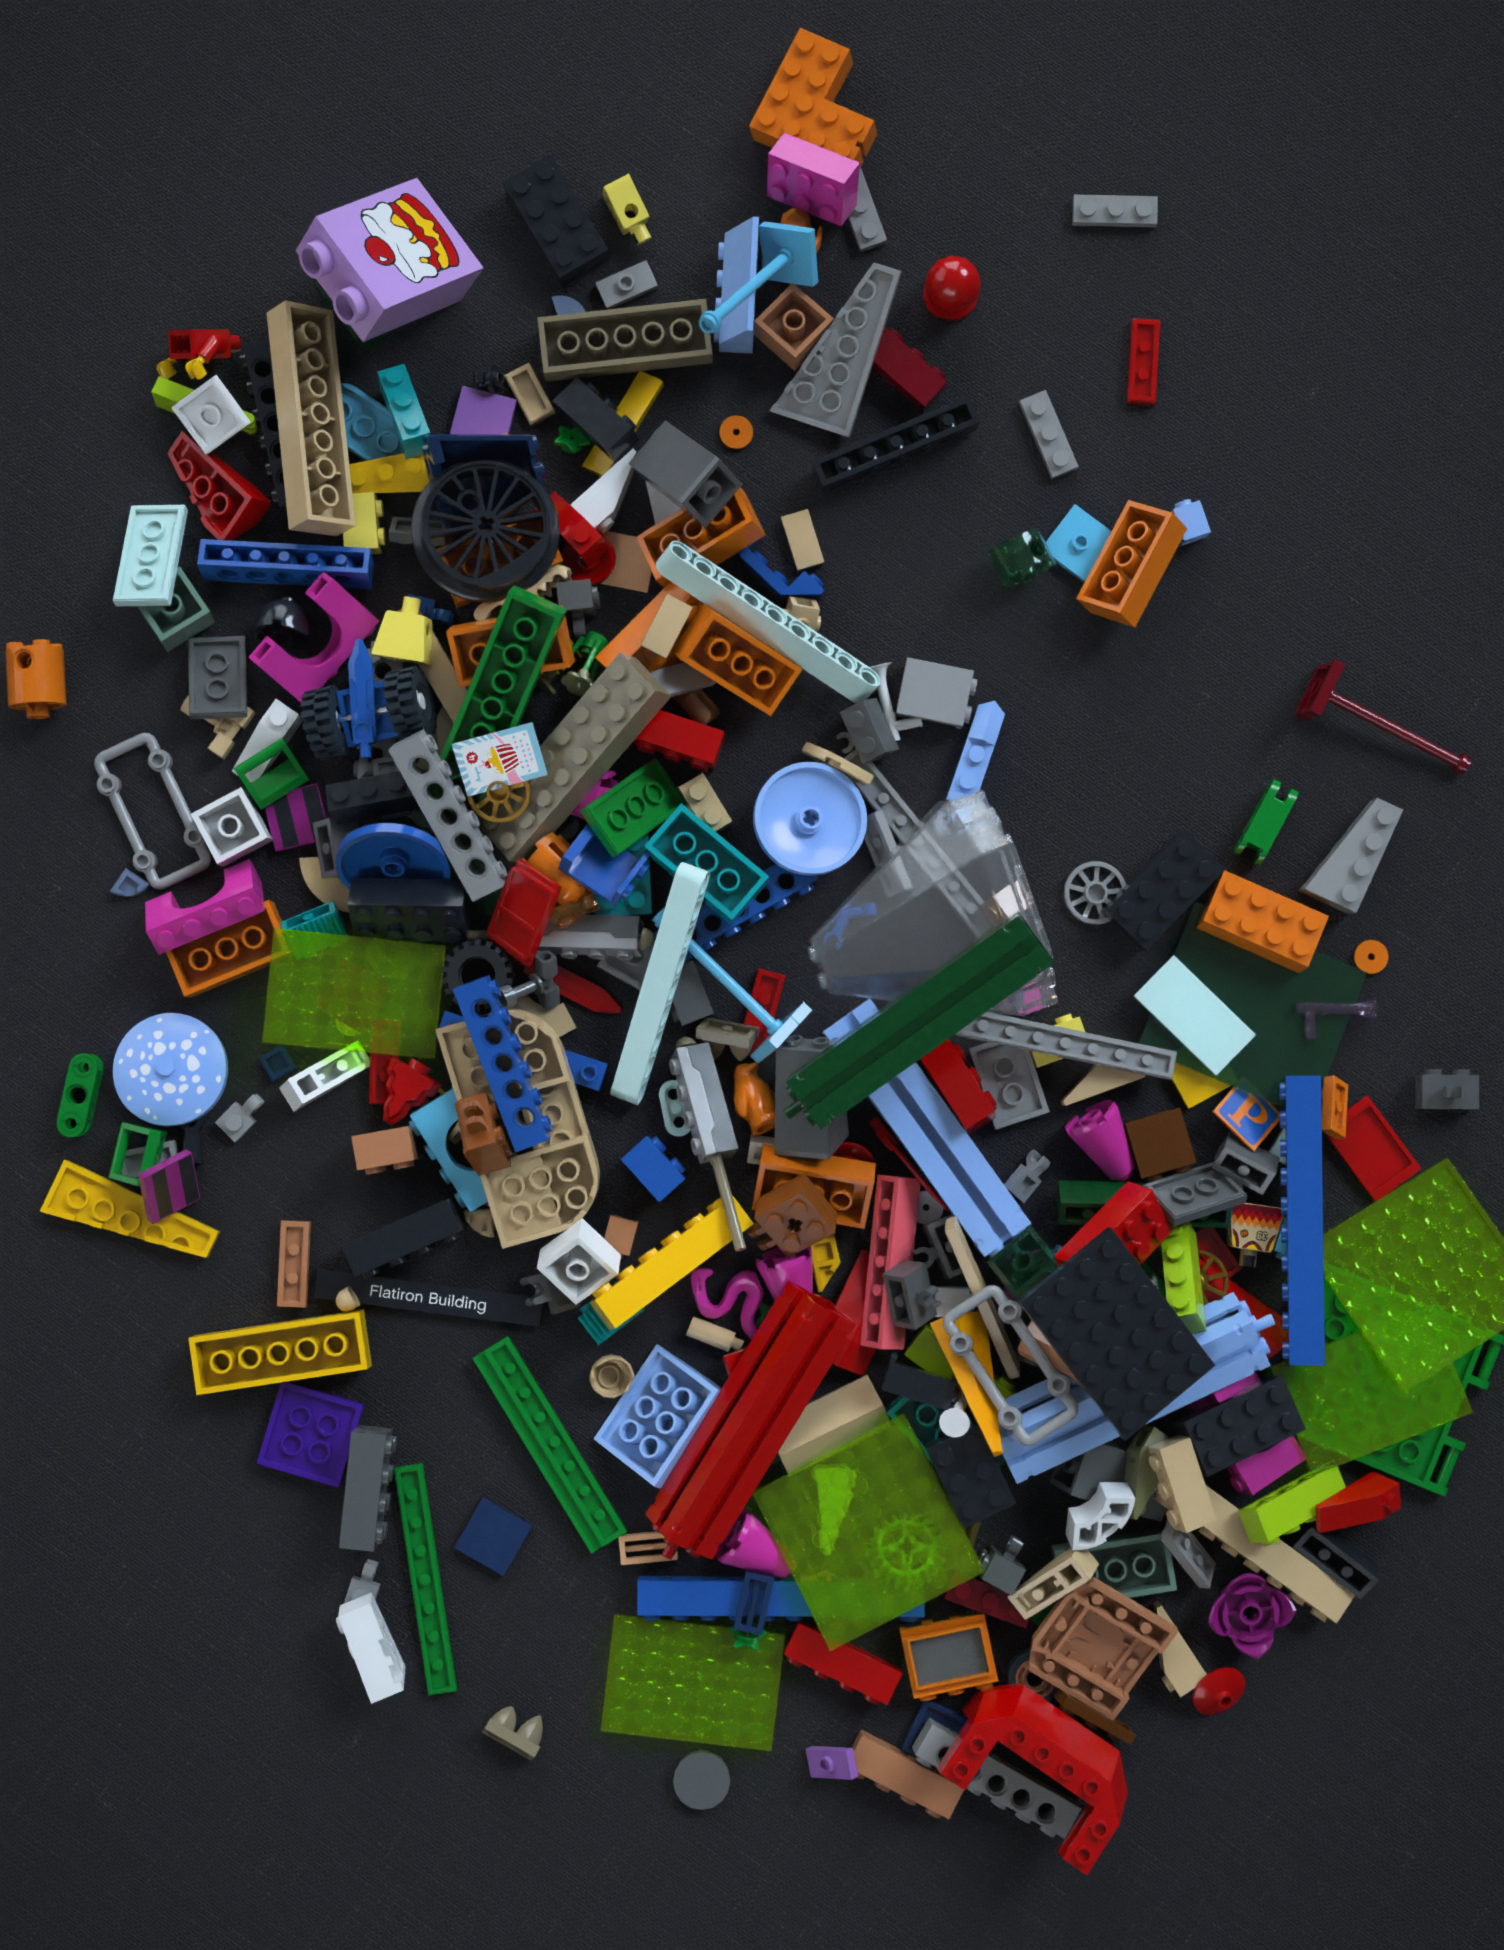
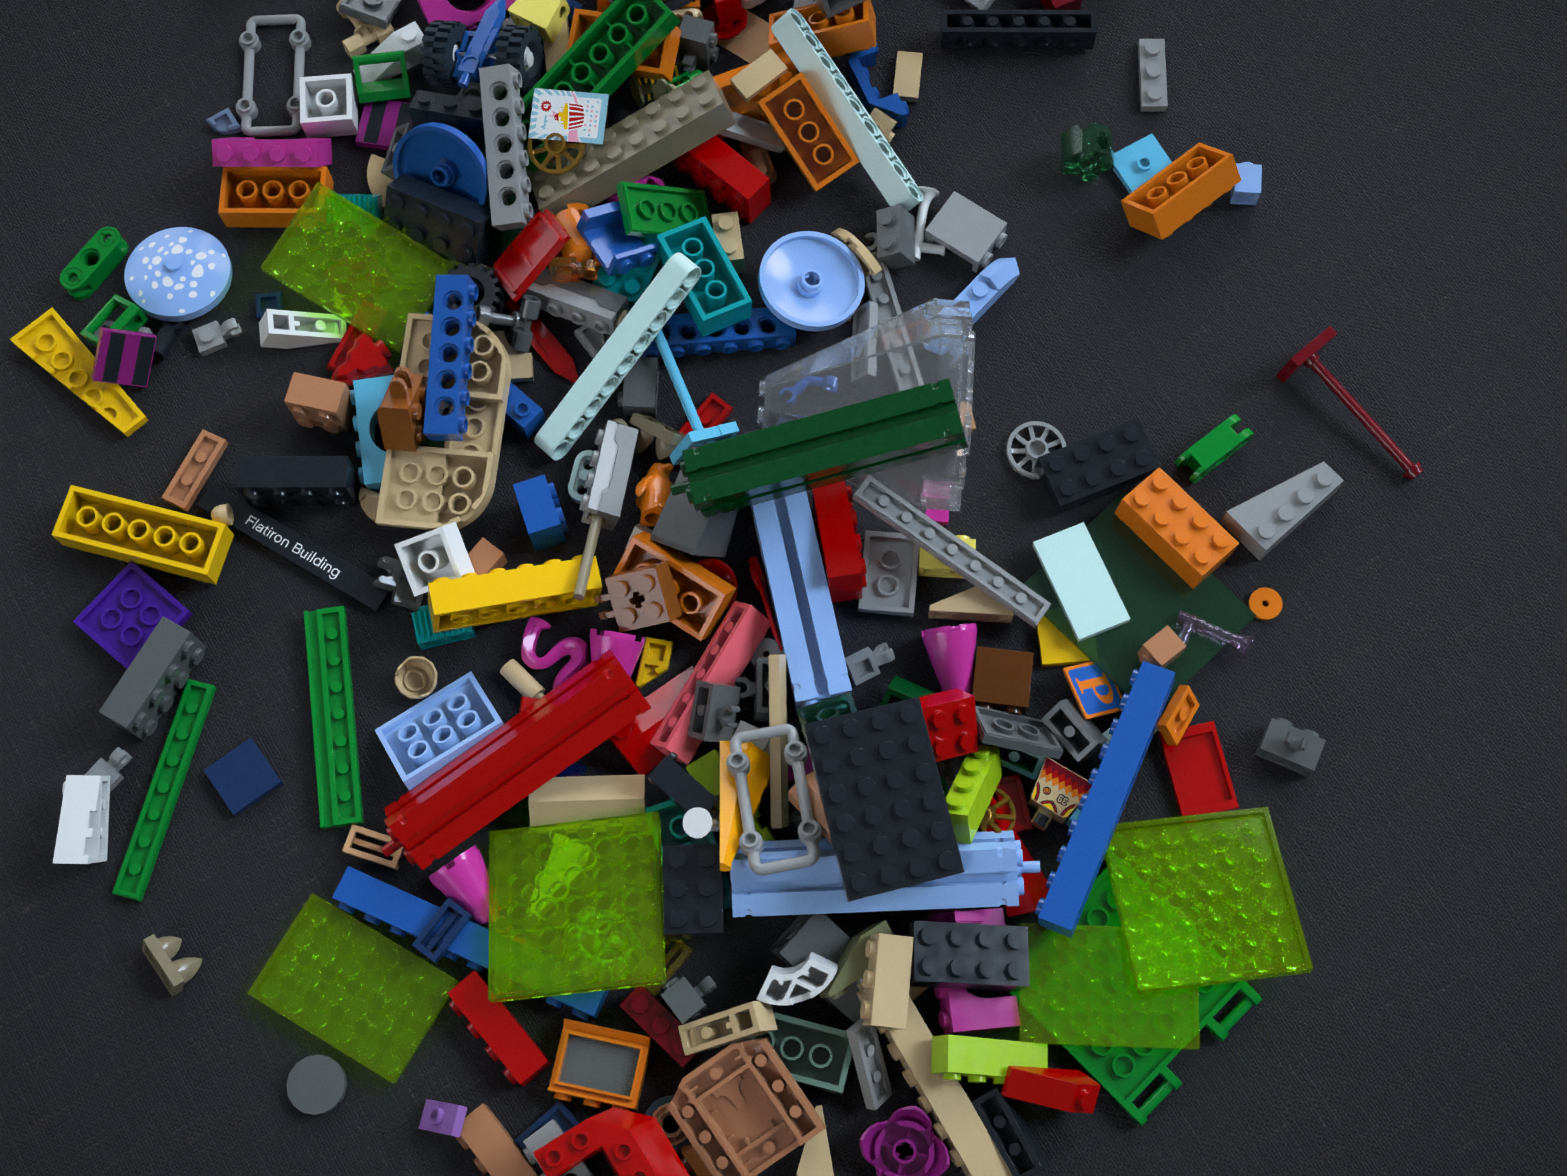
camera: 30 degrees right, 15 degrees down
(742, 1641) = (422, 963): green plate -> none
(1143, 361) = (1257, 50): red tile -> none
(1296, 1053) = (1162, 648): none -> nougat brick

